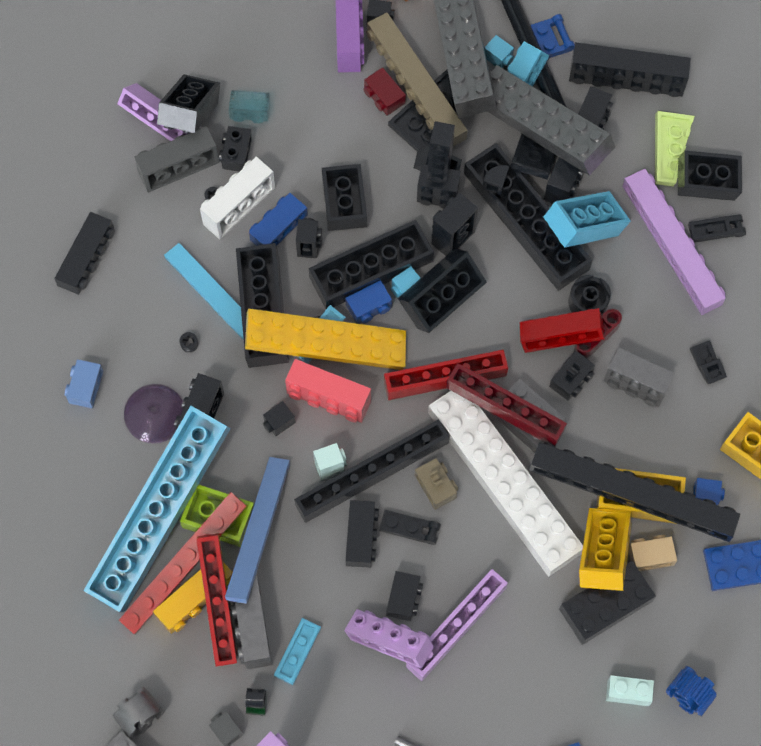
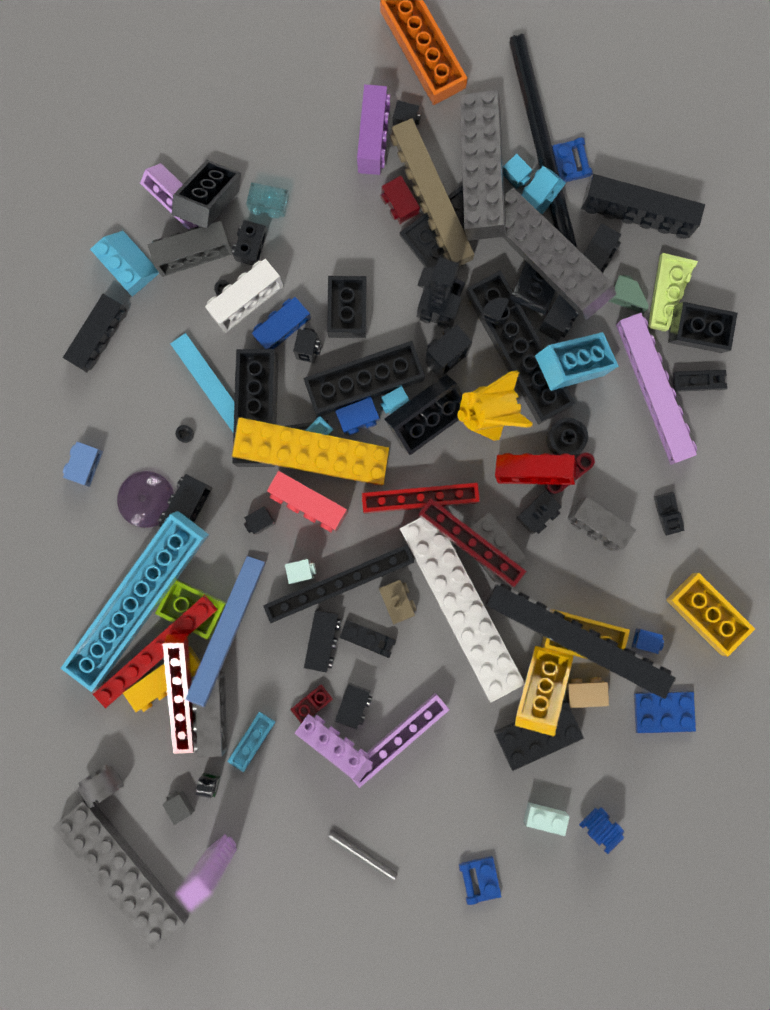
camera: 10 degrees right, 15 degrees up
(108, 181) = (125, 261): none -> medium azure slope
(360, 599) = (311, 703): none -> dark red slope
(507, 273) = (493, 407): none -> yellow brick
(630, 154) = (629, 294): none -> sand green slope

